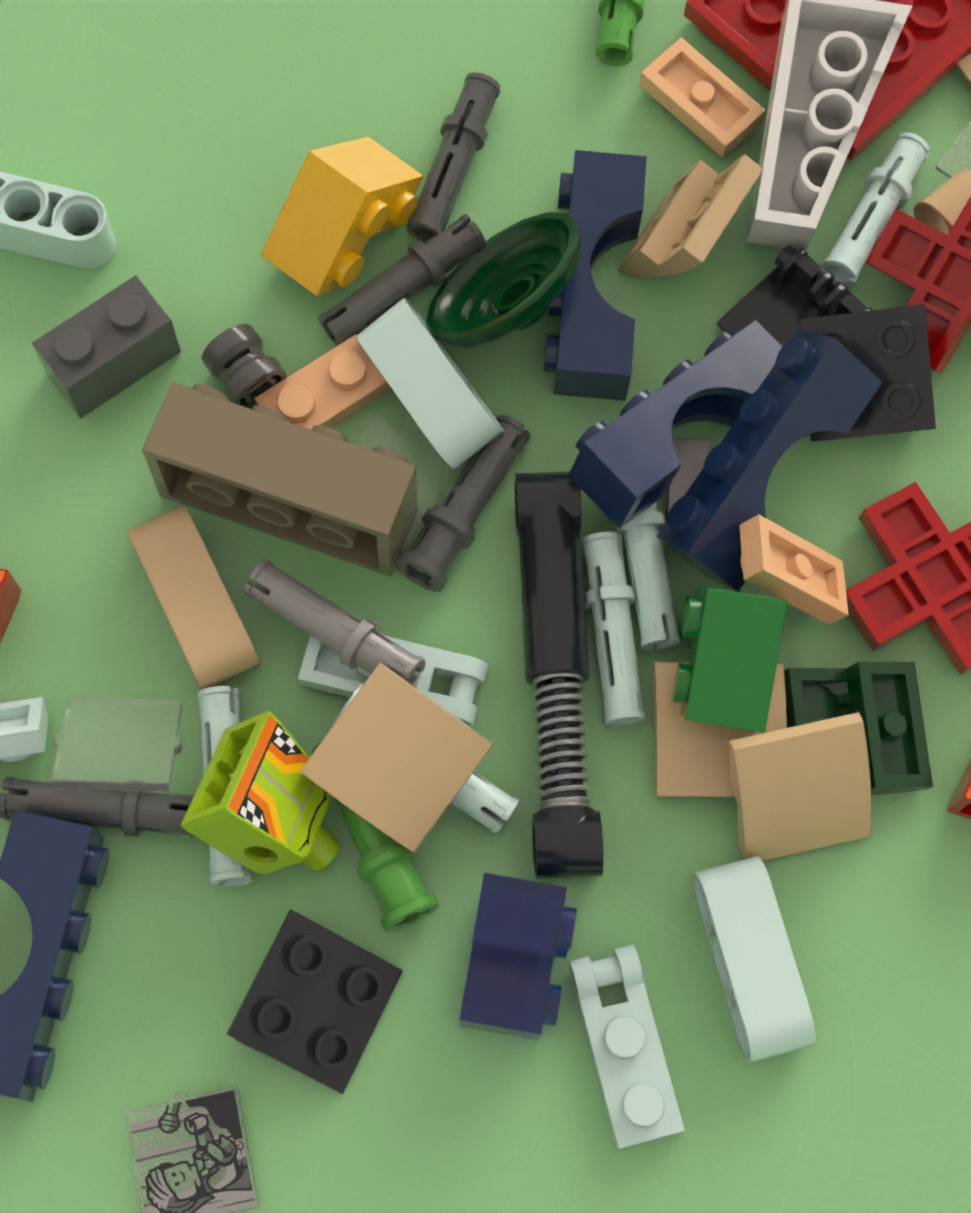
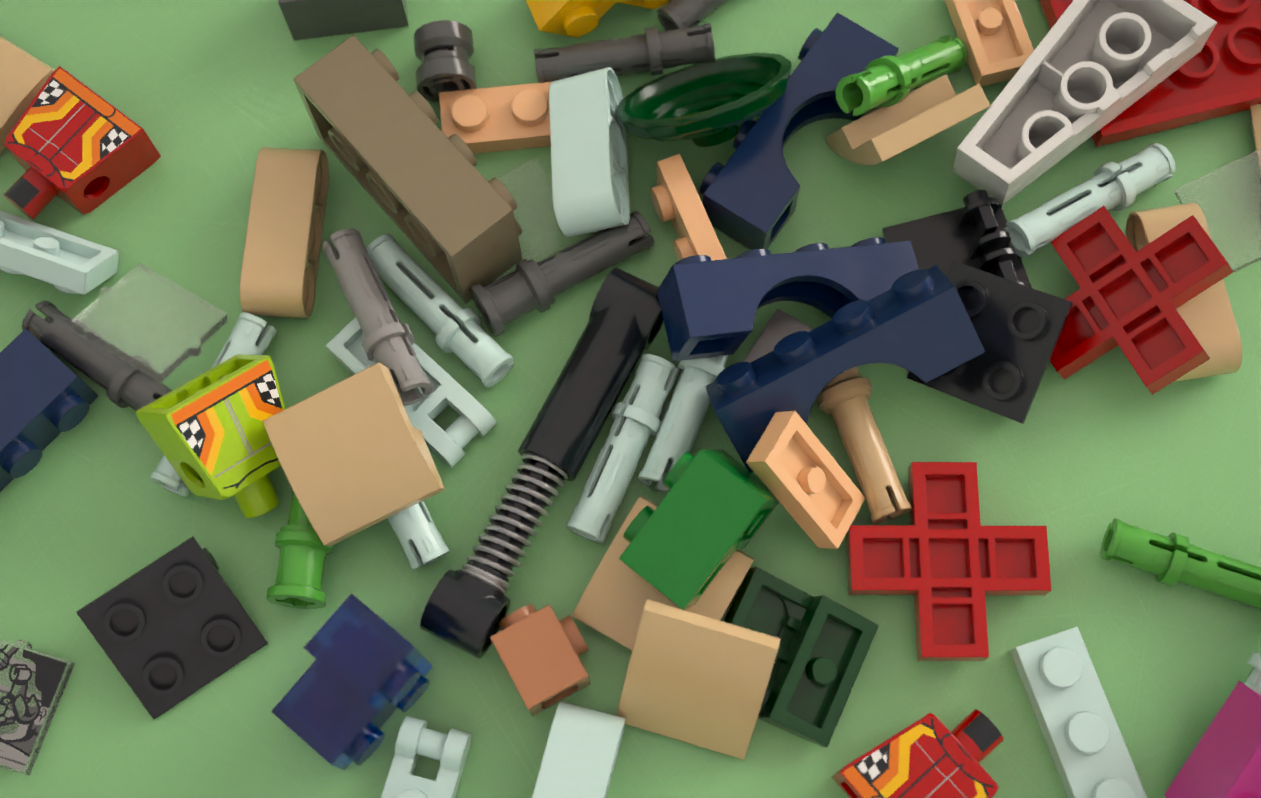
camera: 35 degrees right, 0 degrees up
(381, 596) = (455, 328): none -> light aqua pin
(535, 388) = (678, 201): none -> light nougat plate
(655, 844) = (542, 656): none -> nougat brick
(660, 184) = (892, 78): none -> bright green pin
(820, 520) = (847, 402): none -> tan pin

